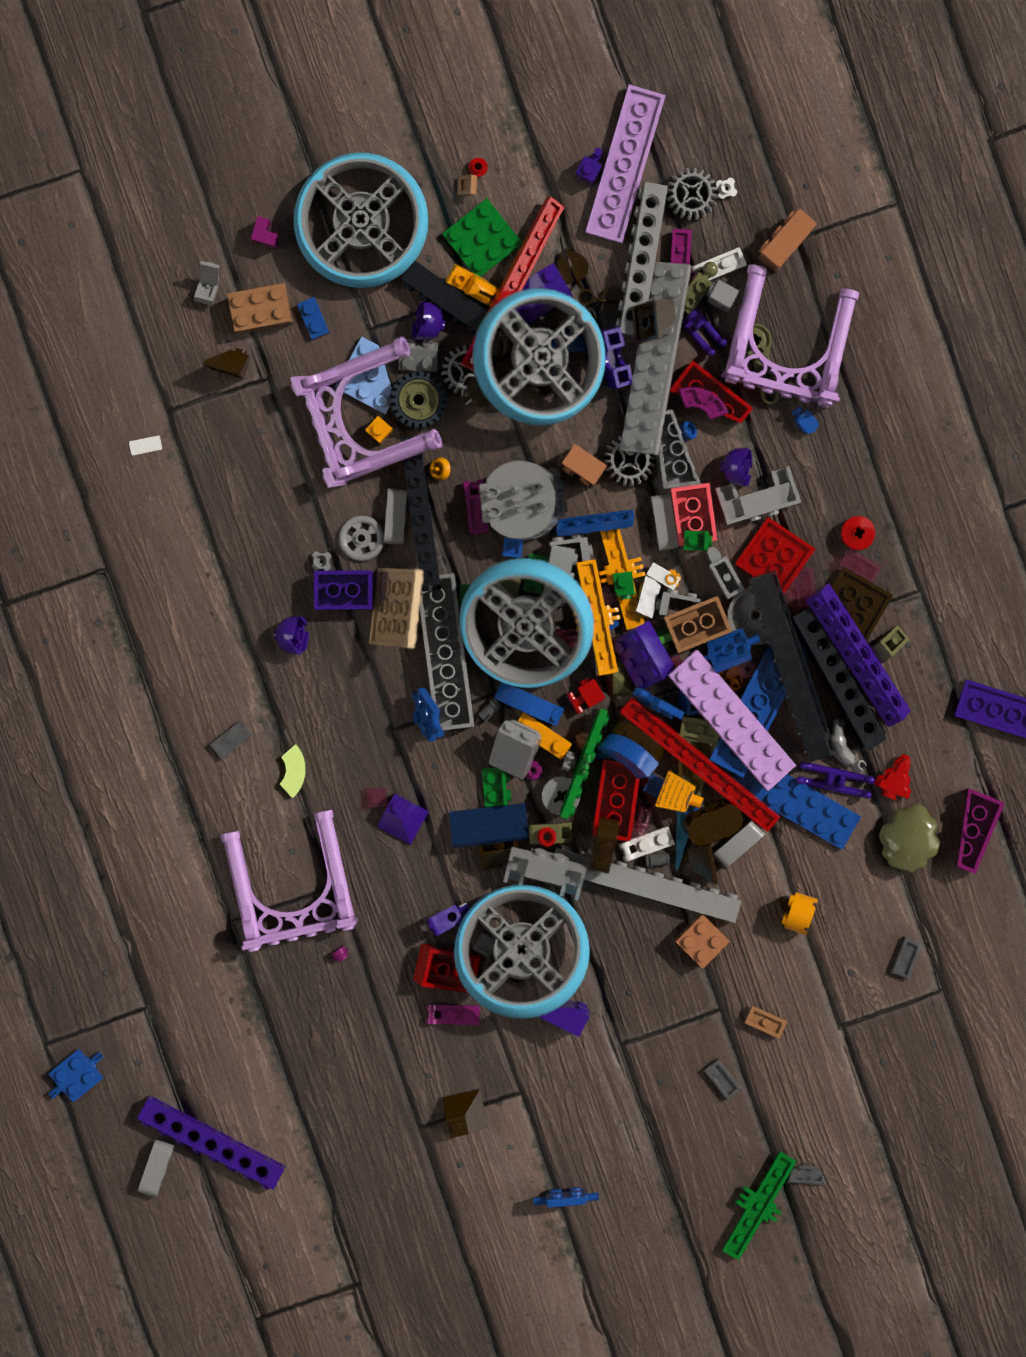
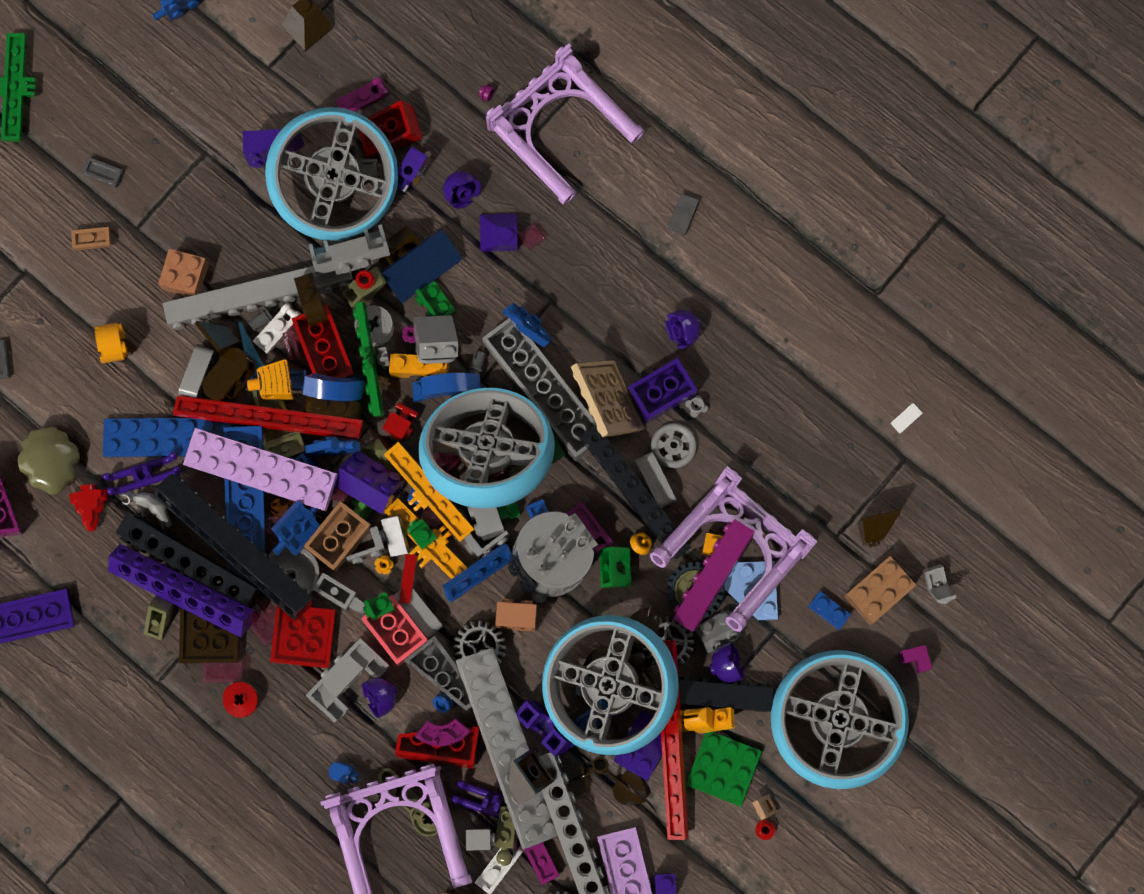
camera: 155 degrees right, 10 degrees down
(295, 771) = (614, 220): yellowish green tile -> none
(395, 400) = (715, 573): none -> magenta brick
(414, 876) = (460, 189): none -> dark purple cylinder
(475, 459) = (615, 567): none -> green brick
(657, 553) = (407, 578): none -> red sticker
(659, 574) = (395, 562): white sticker -> none

